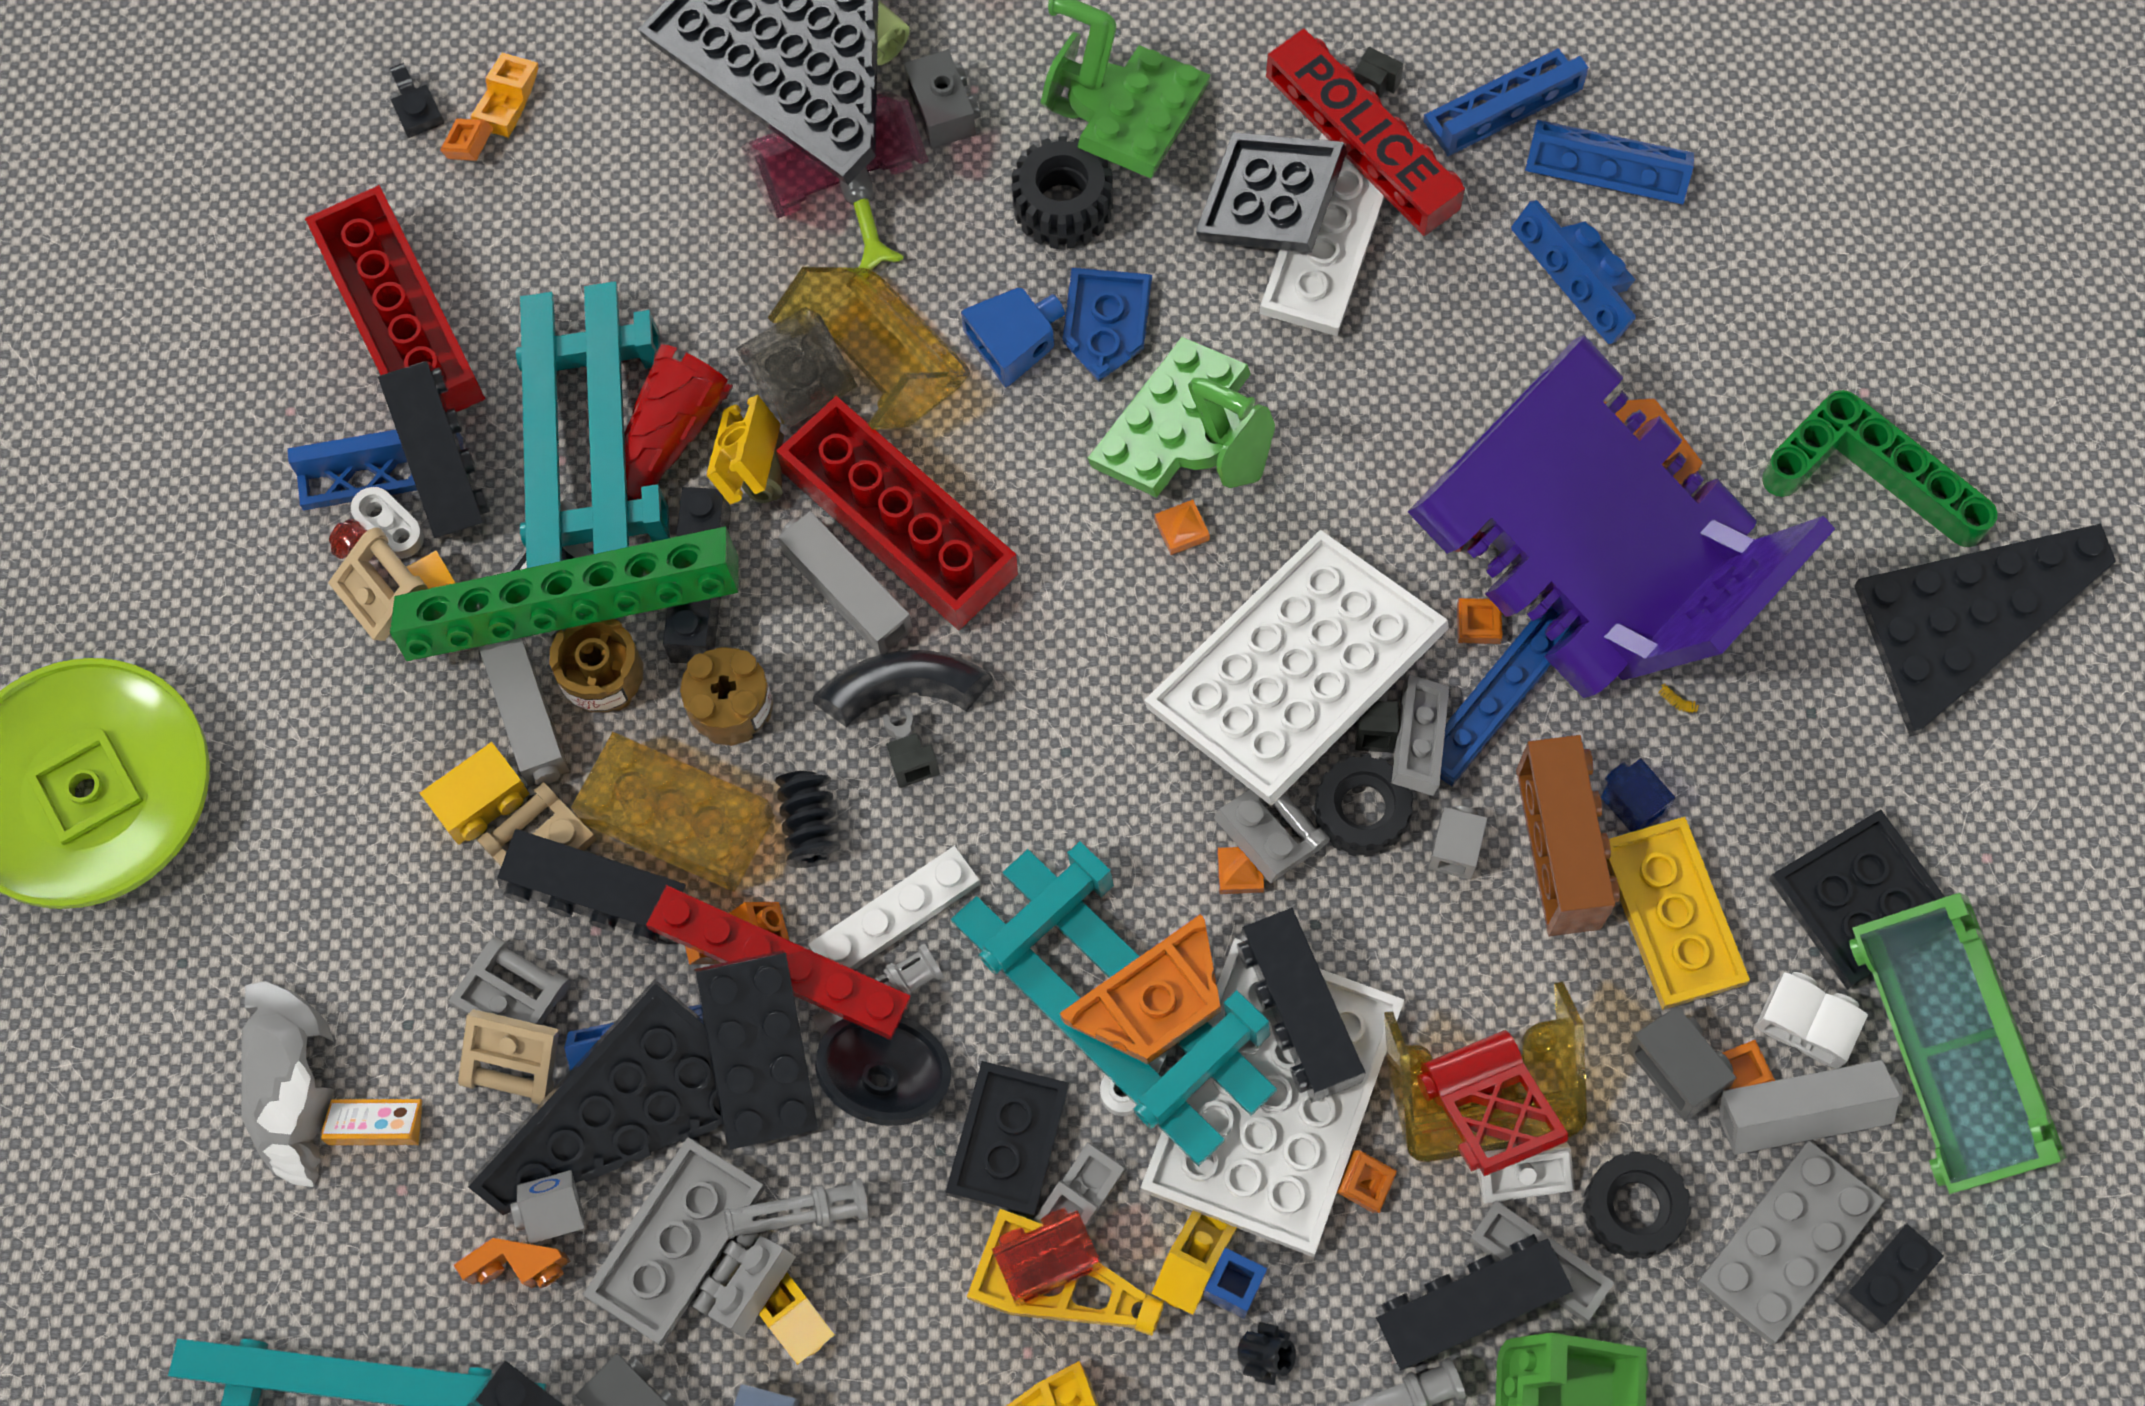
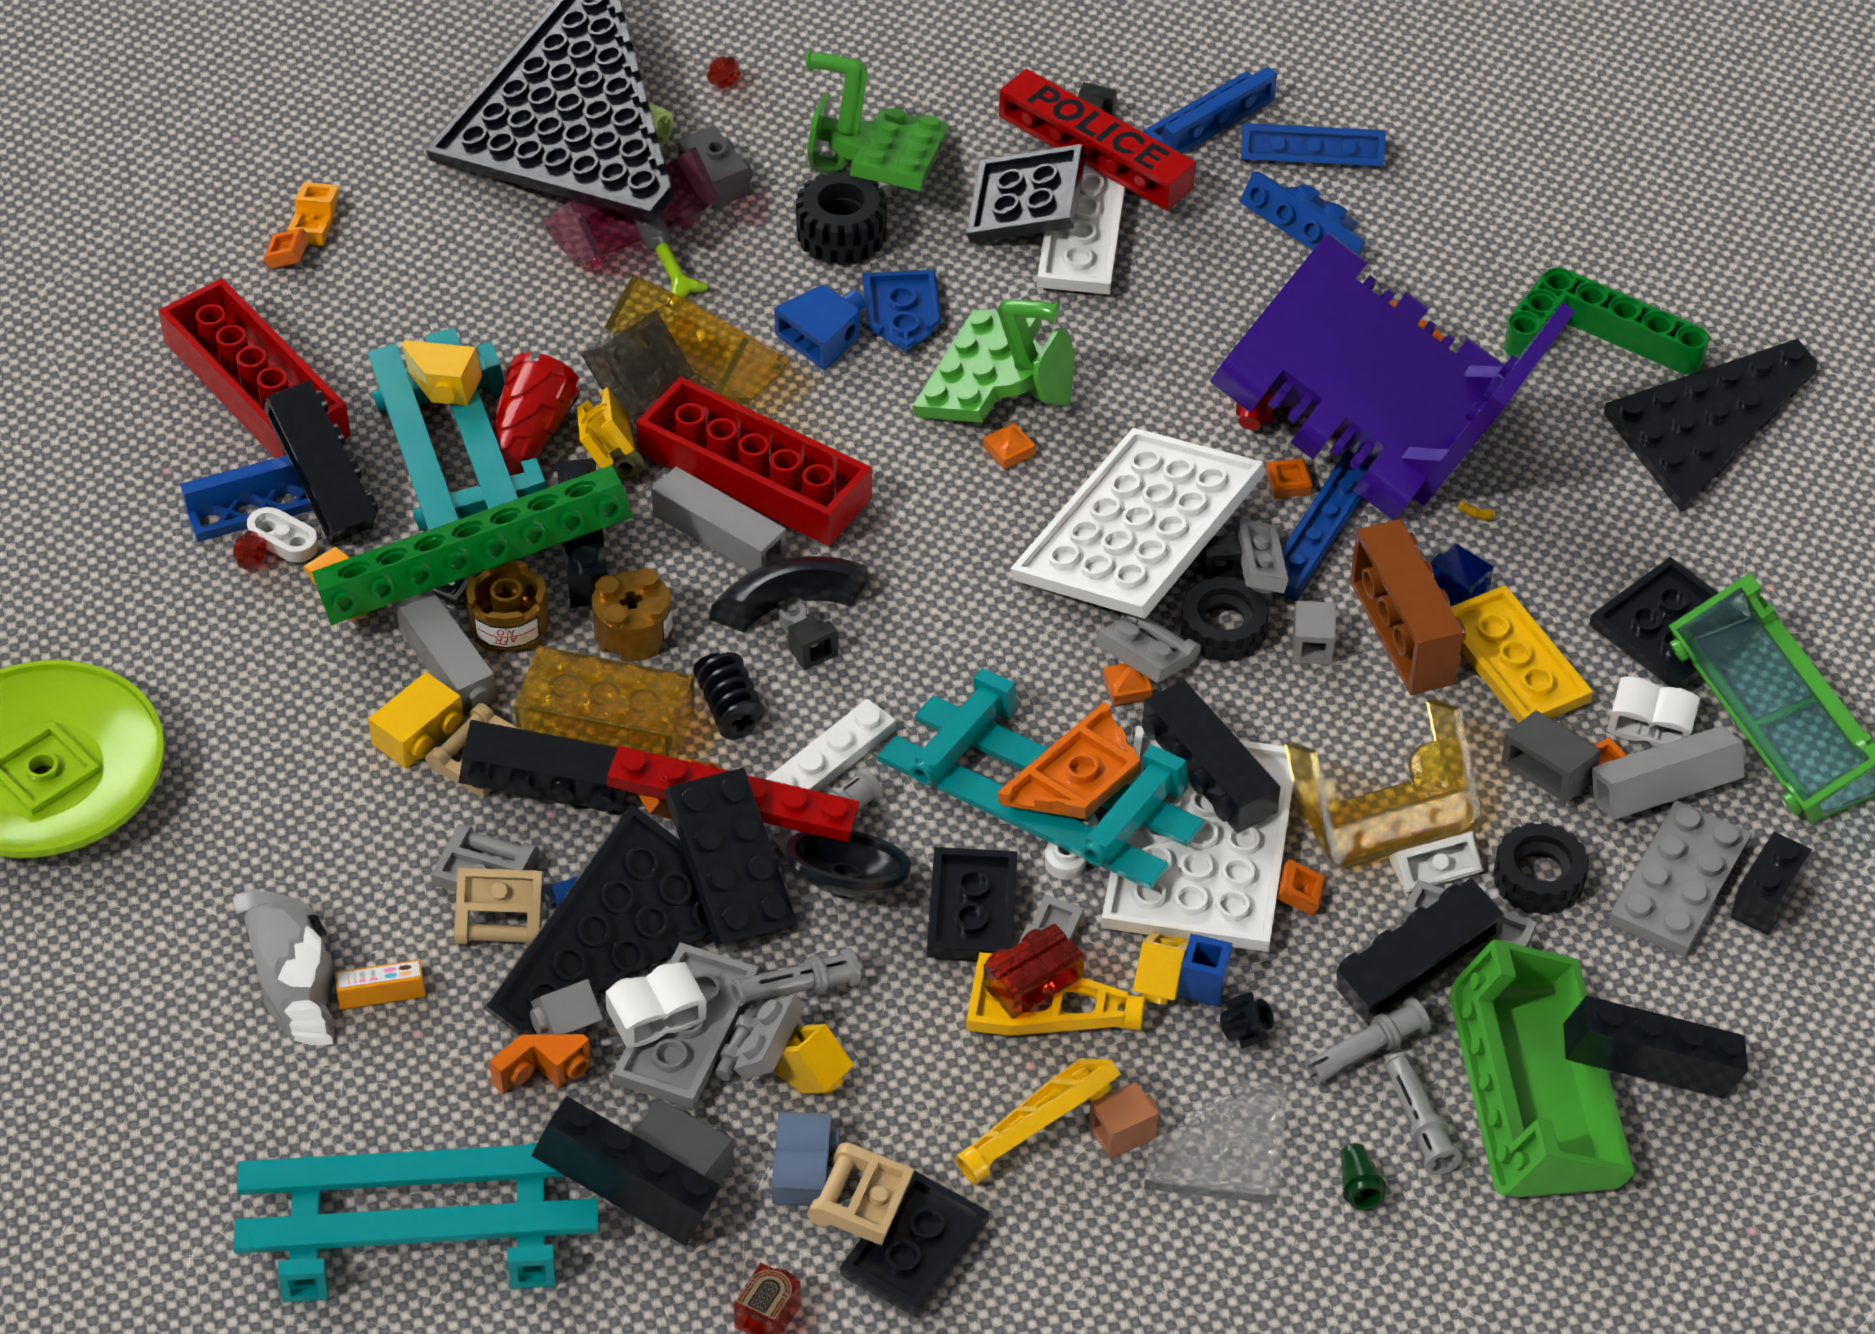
camera: 15 degrees left, 20 degrees down
(365, 590) = (278, 586): tan plate -> none
(415, 105) = (229, 233): black plate -> none
(585, 352) = (443, 370): none -> yellow slope
(639, 1224) = (656, 1004): none -> white brick
(1472, 1076) = (1385, 785): red piece -> none

